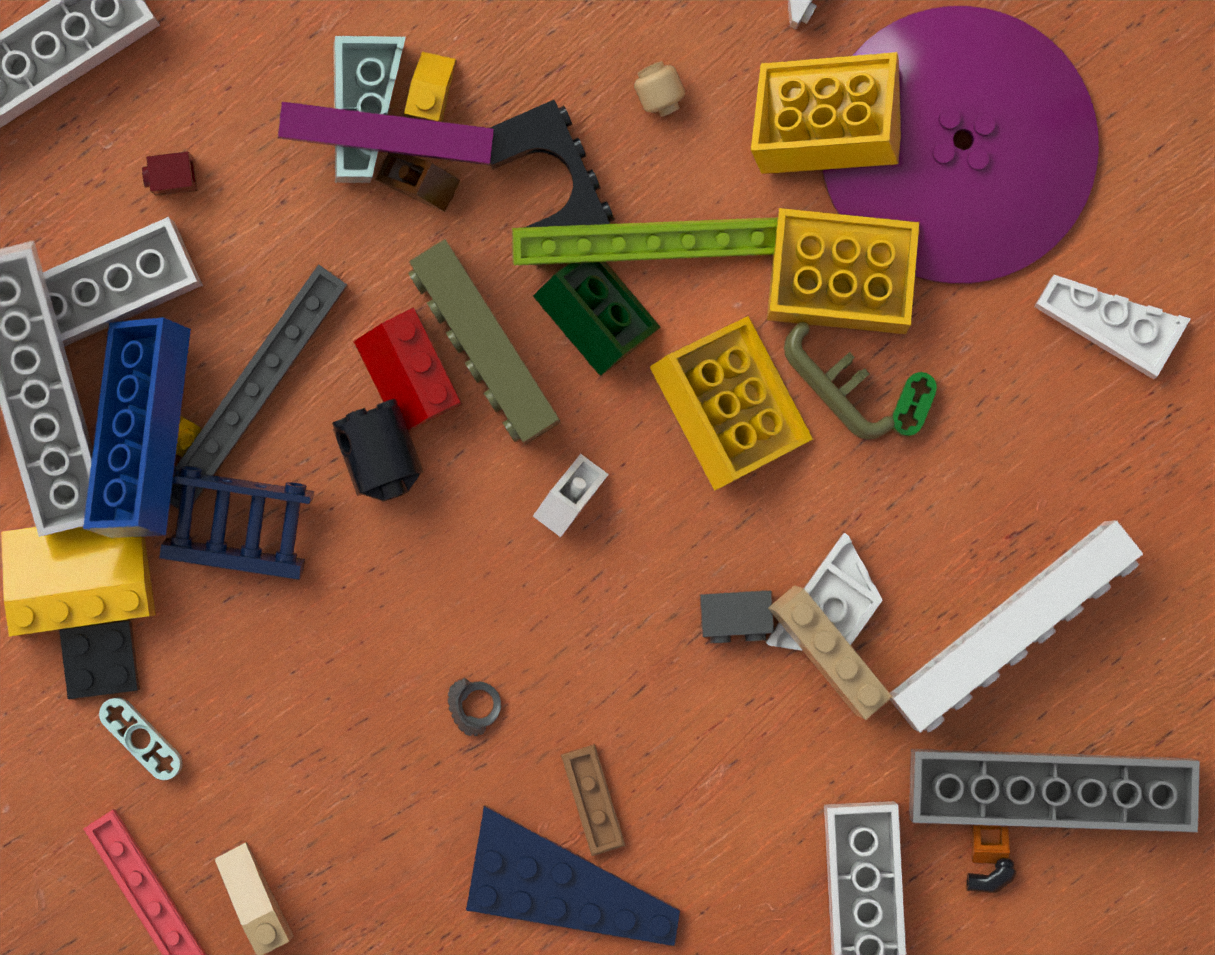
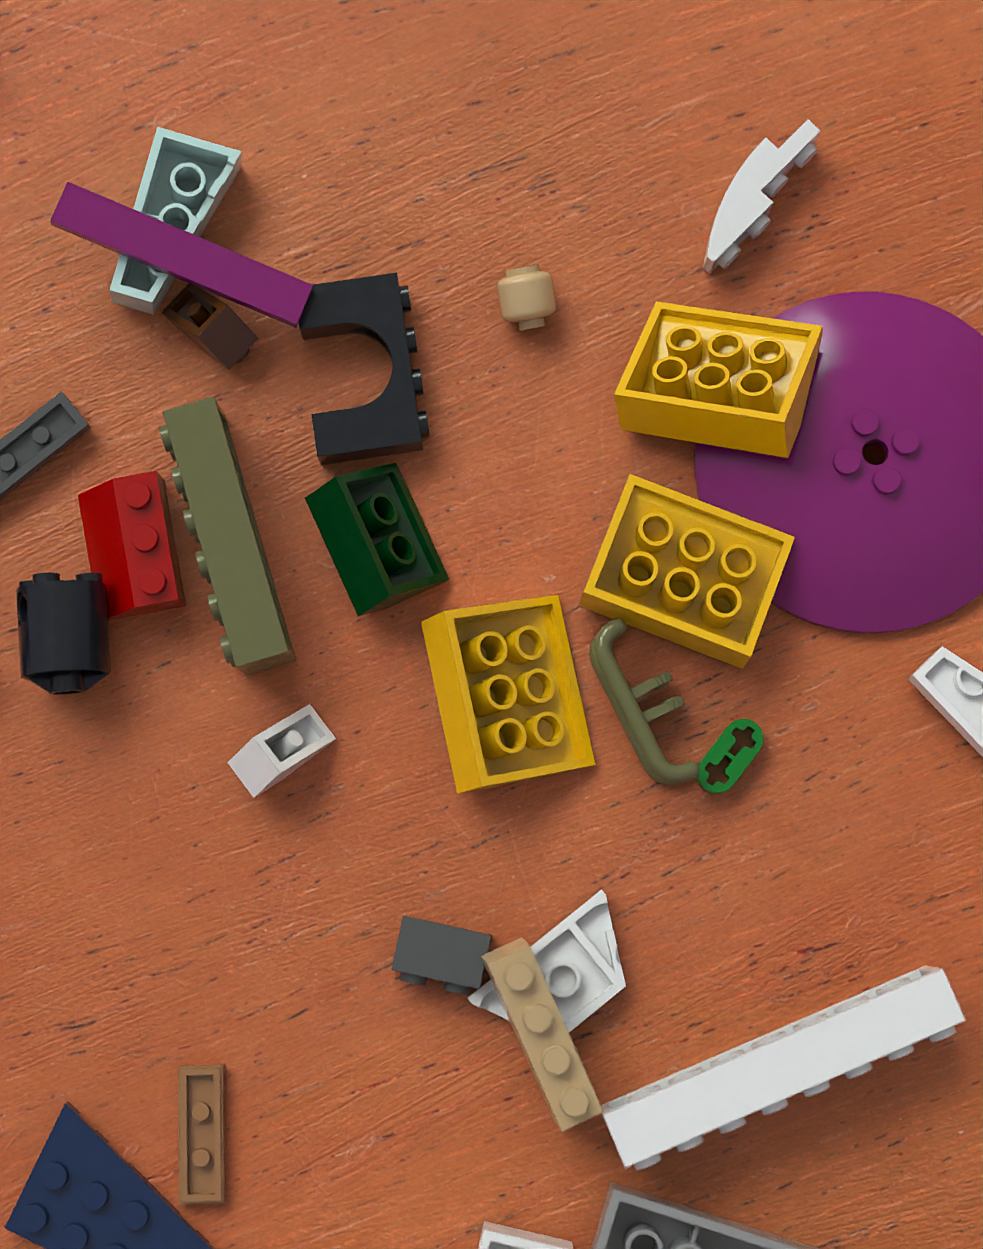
camera: 20 degrees right, 5 degrees down
(430, 87) = (256, 221): yellow slope -> none
(458, 693) = (77, 954): dark grey piece -> none
(643, 241) = (455, 468): lime tile -> none

